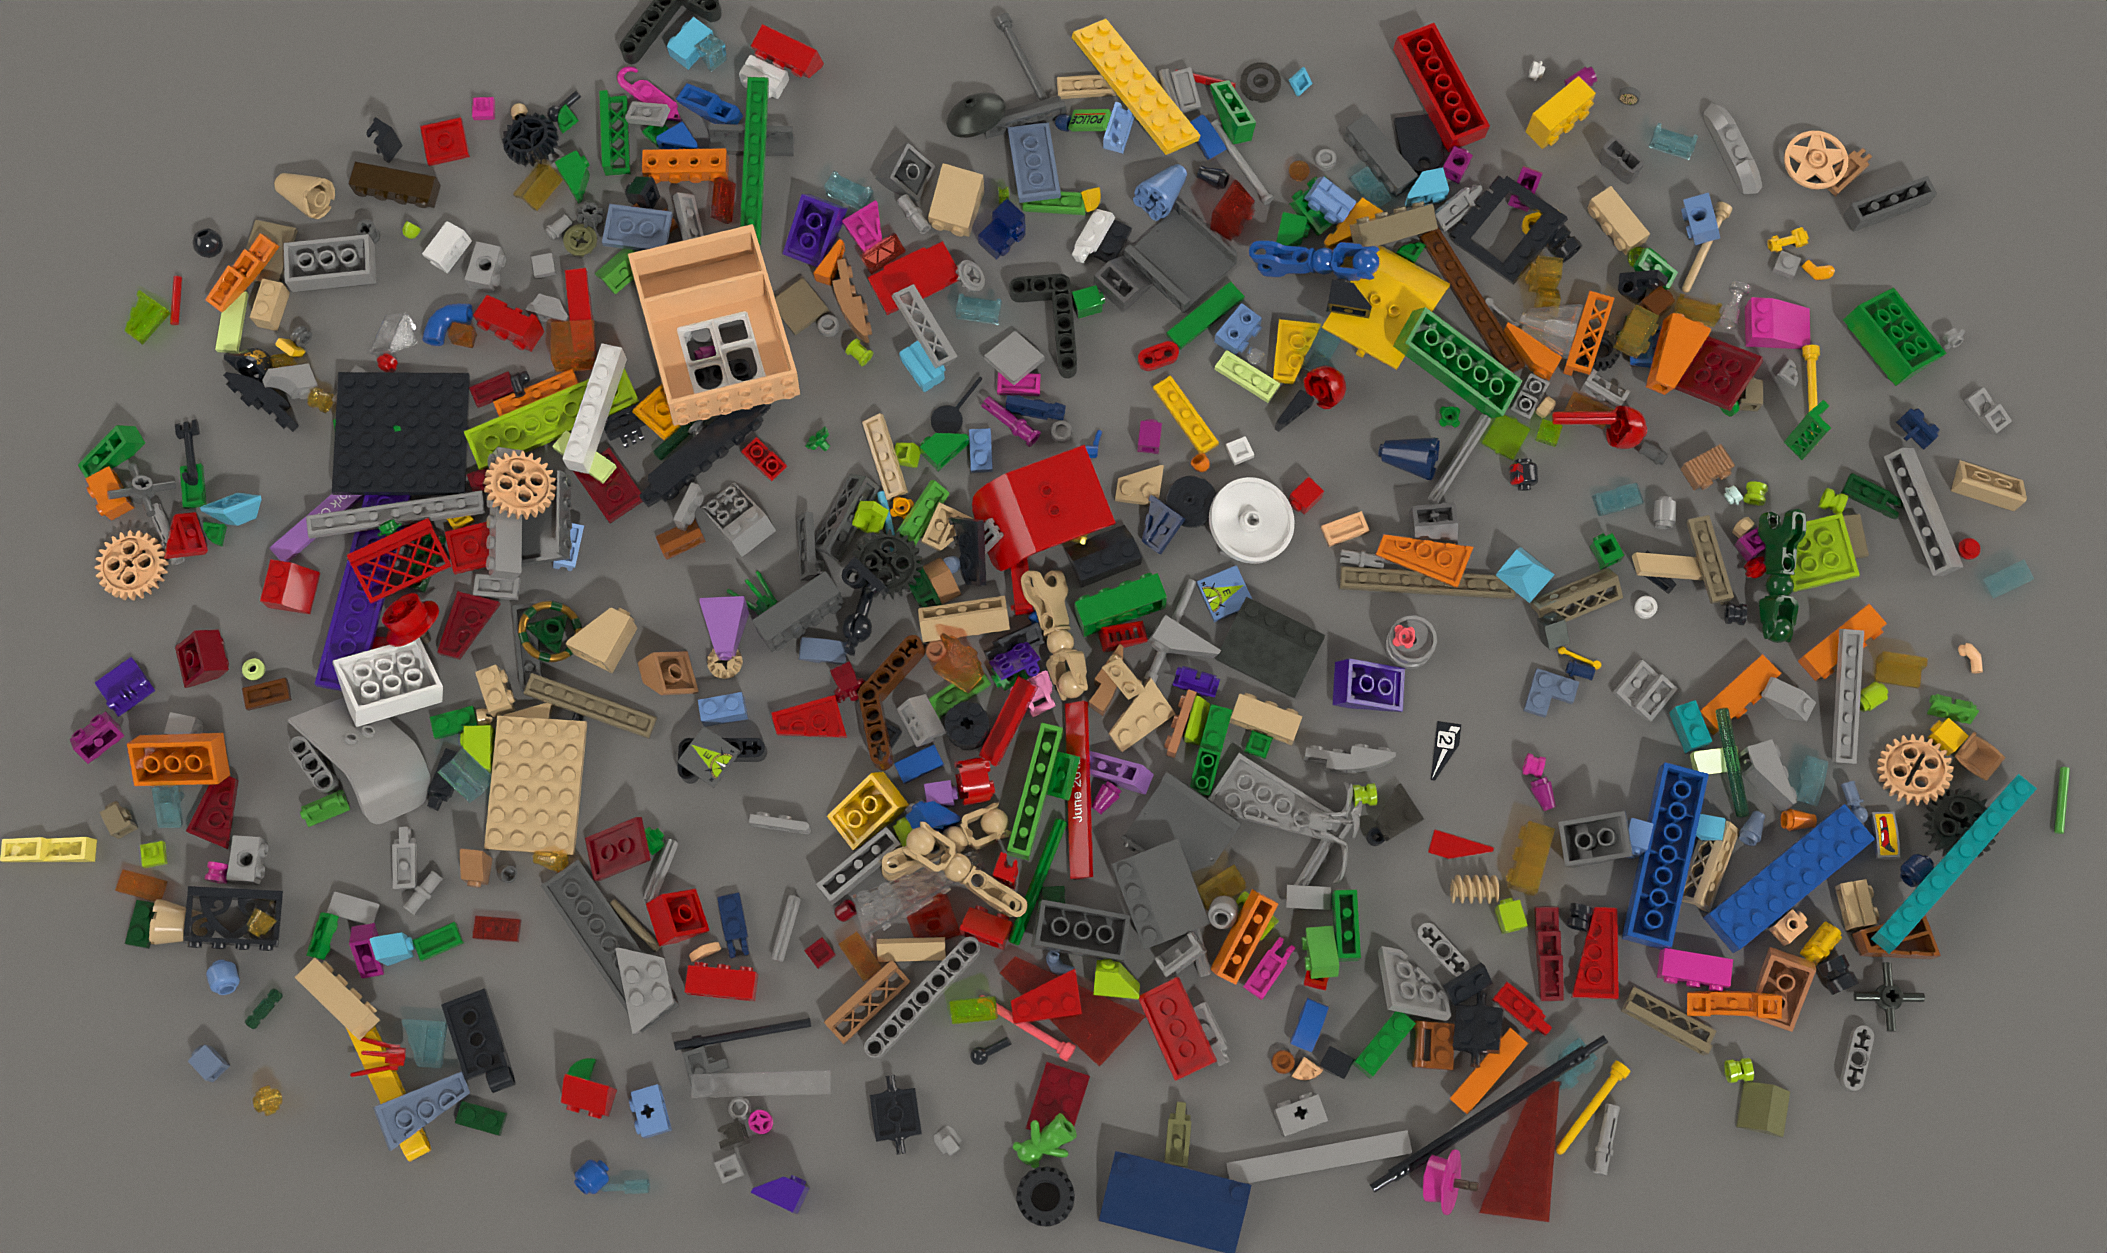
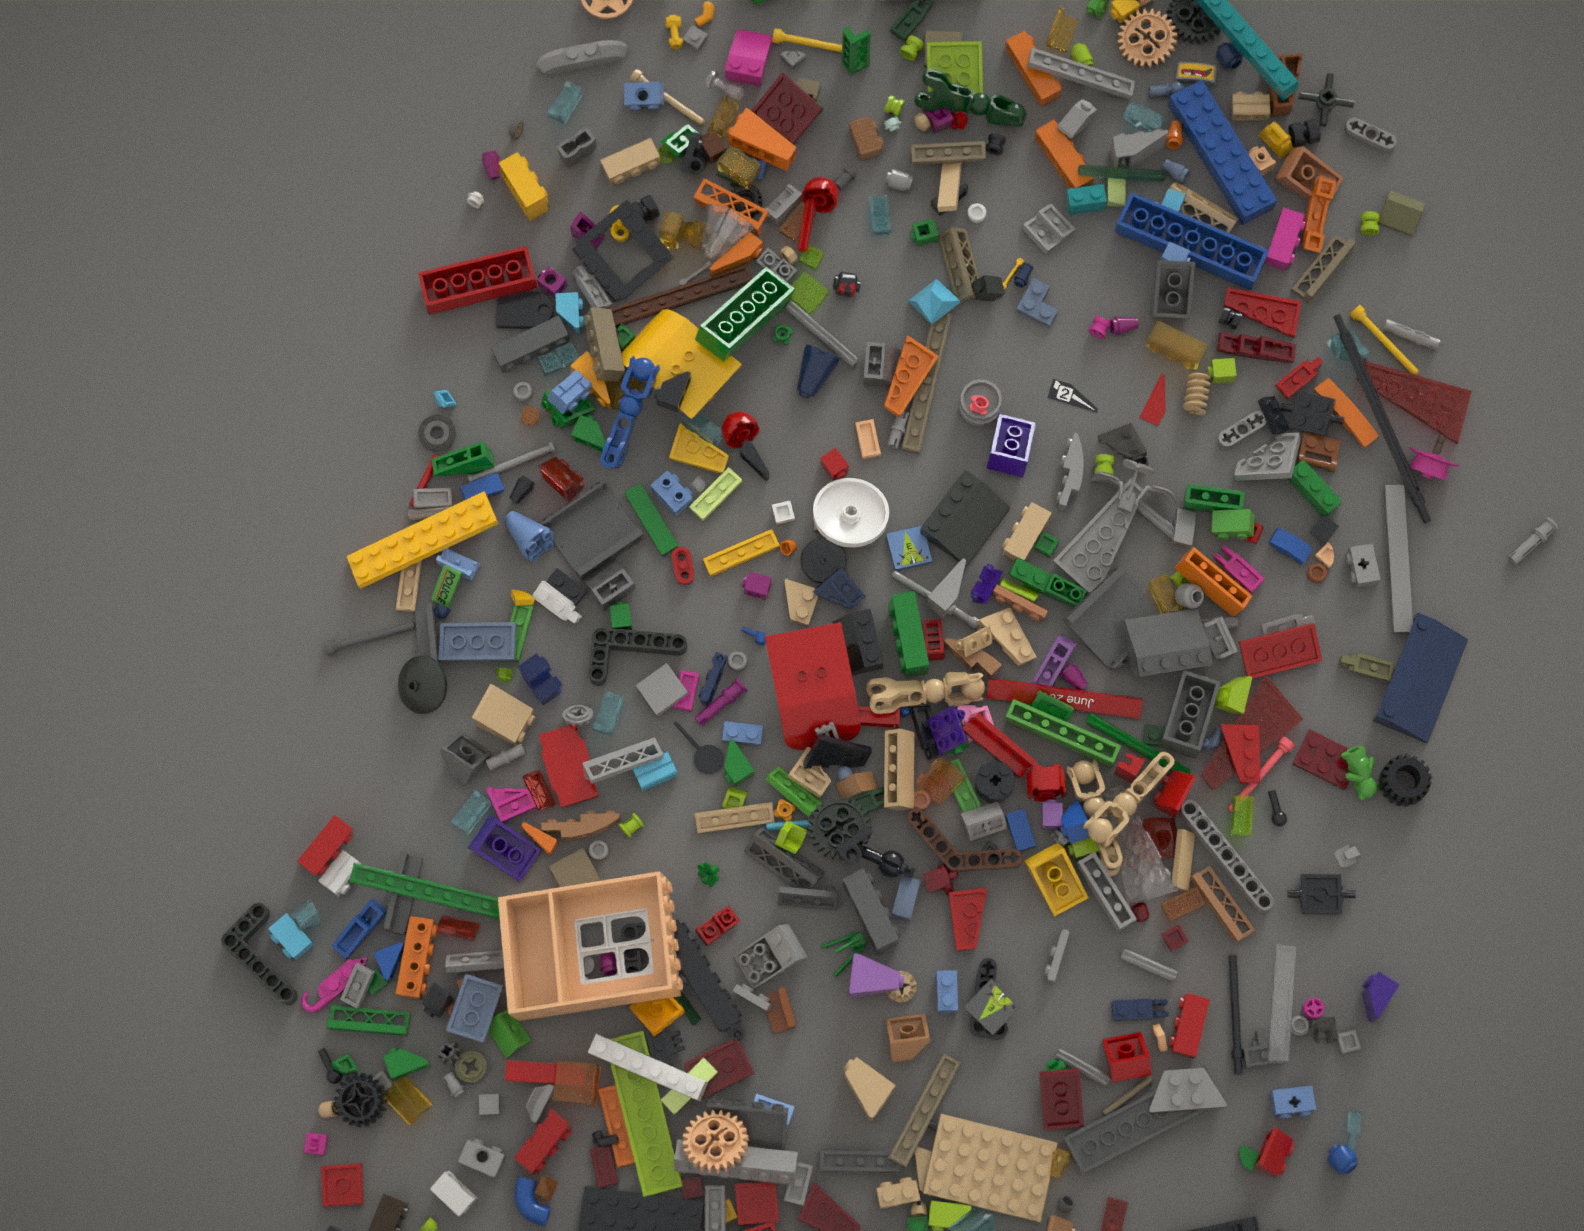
camera: 80 degrees left, 0 degrees up
(548, 631) = (849, 1138): dark green piece -> none

